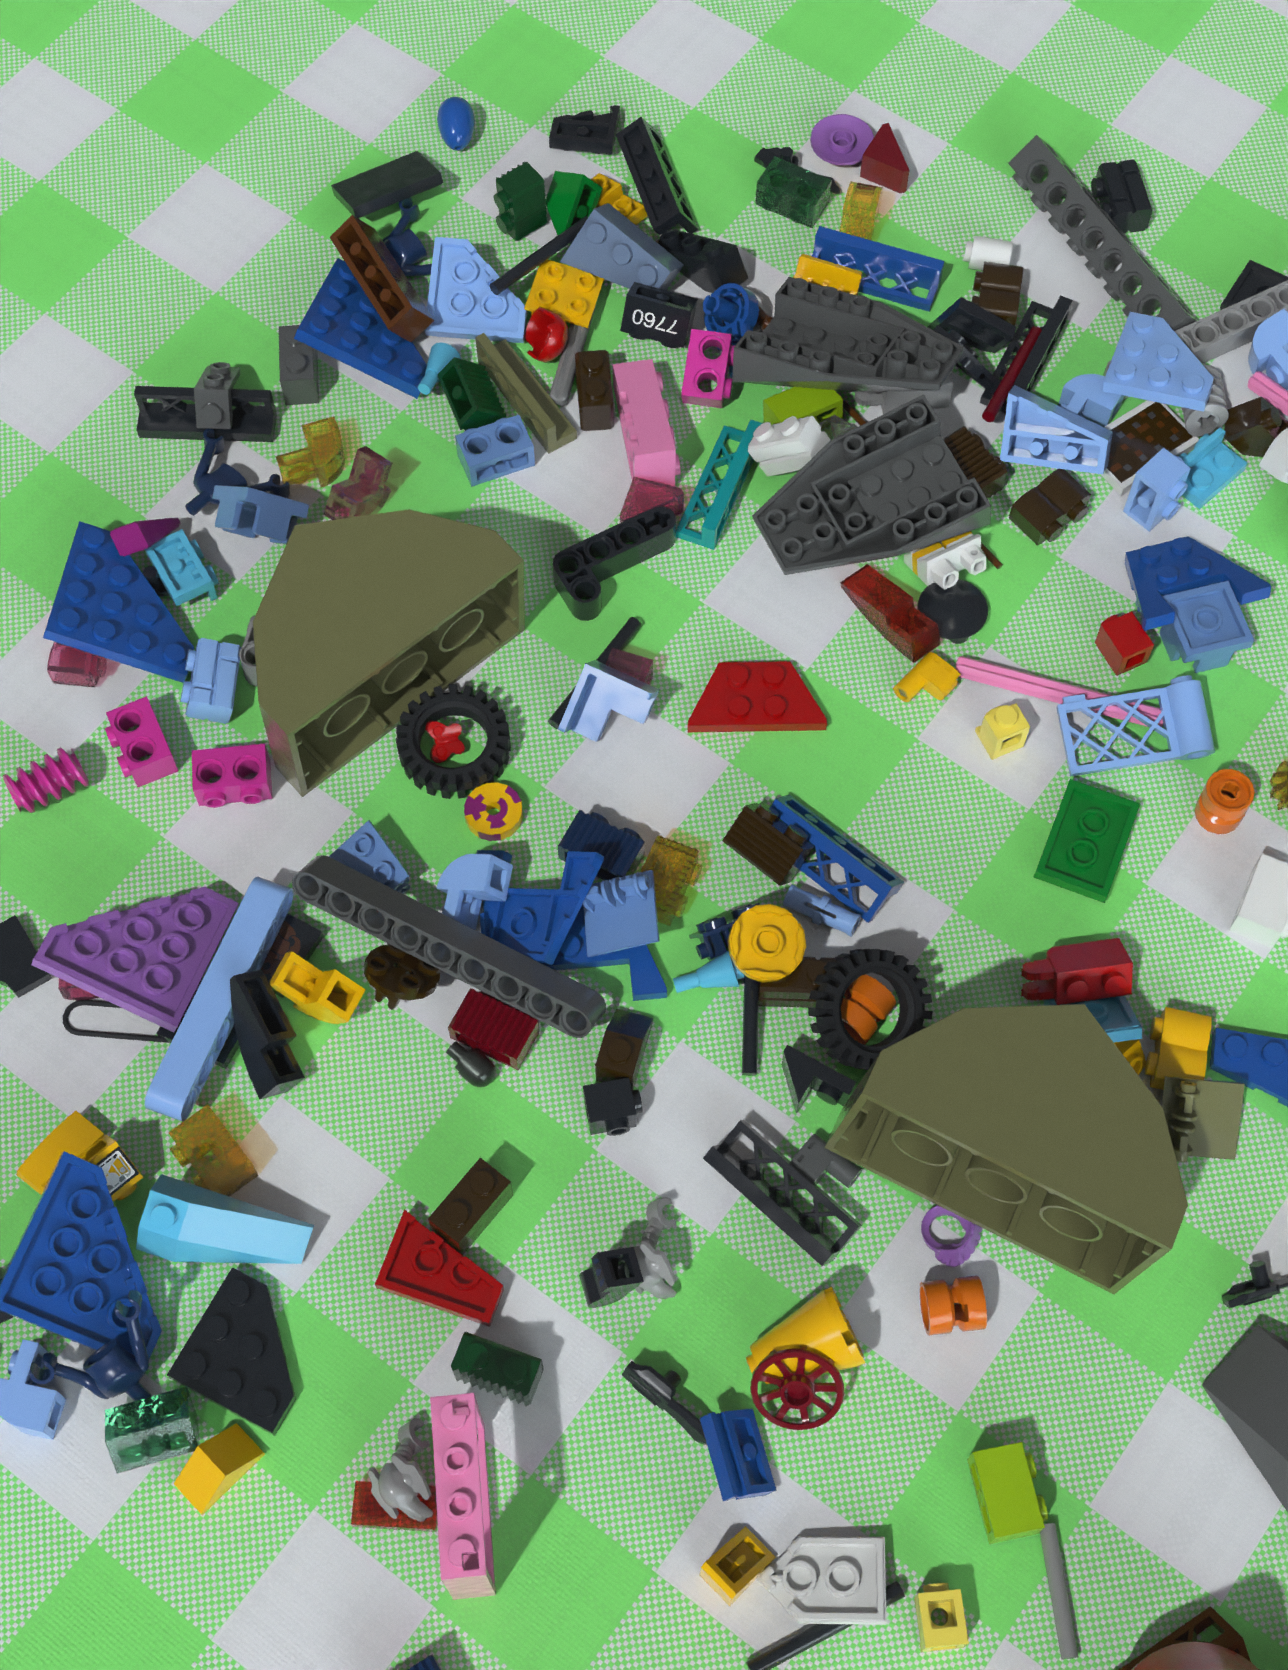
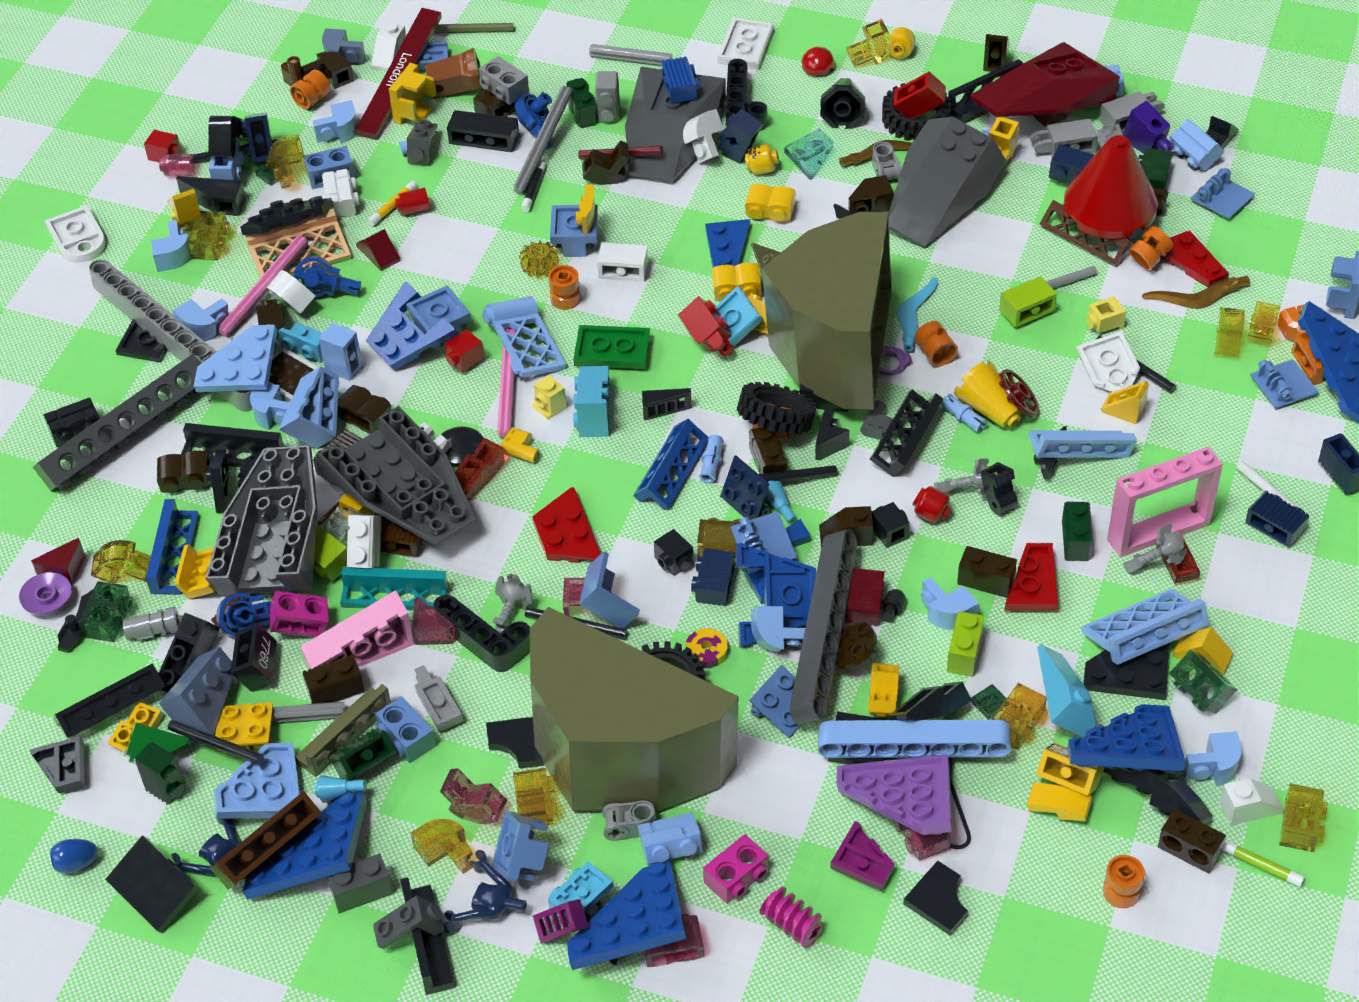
camera: 105 degrees left, 15 degrees down
(92, 888) = (862, 859): none -> magenta wing
(111, 1367) = (1180, 711): dark blue piece -> none
(232, 766) = (738, 803): dark pink brick -> none
(254, 1390) = (1143, 636): none -> light blue fence
(261, 1134) = (988, 701): none -> clear green tile
(357, 1128) = (965, 643): none -> lime brick
(427, 1126) = (944, 607): none -> light blue brick
(530, 492) = (437, 700): none -> light grey hinge
(546, 334) = (290, 723): red hair -> none
(625, 1178) = (931, 504): none -> red head
(650, 1444) = (1082, 444): none -> light blue fence
(658, 605) = (511, 594): none -> light grey piece
(661, 810) = (673, 552): none -> black brick
(737, 1454) = (1066, 413): blue plate -> none
(756, 235) = (148, 625): none -> light grey axle
(766, 943) = (760, 453): yellow tile -> none
(768, 842) = (678, 488): dark brown brick -> none
(782, 1306) = (964, 413): none -> light blue pin
(949, 863) = (661, 402): none -> black slope
(978, 781) = (592, 401): none -> medium azure wedge
(987, 250) = (144, 483): white brick -> none
(1010, 376) = (253, 444): dark red bar -> none
(1054, 1300) = (907, 313): none -> medium azure piece

